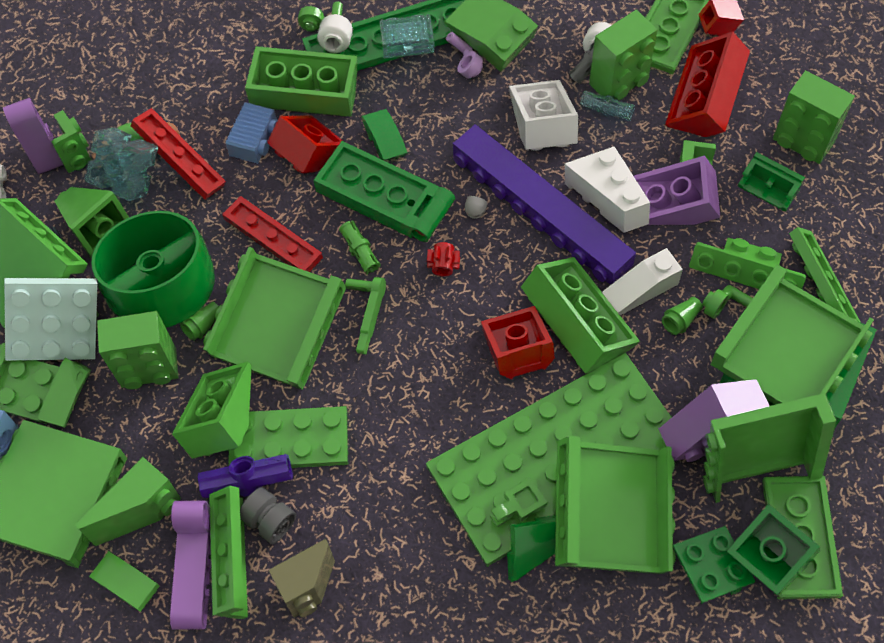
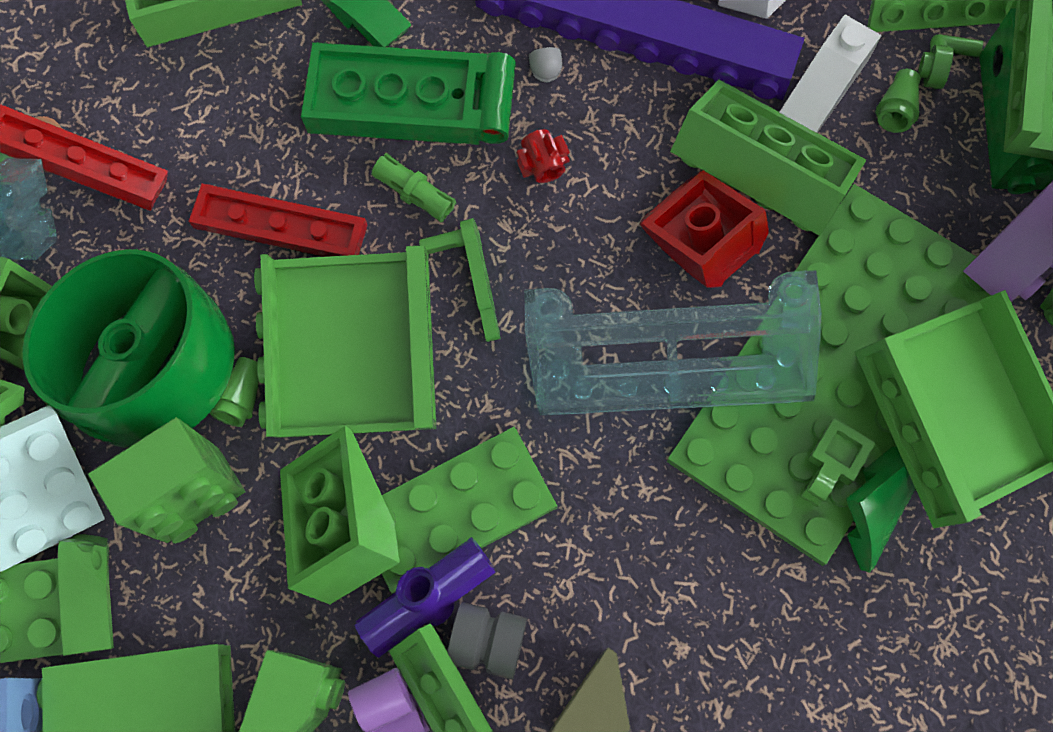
camera: 25 degrees left, 10 degrees up
(251, 133) = (170, 83): medium blue brick -> none
(303, 142) = (255, 68): red slope -> none
(393, 399) = (780, 375): none -> clear light blue windscreen

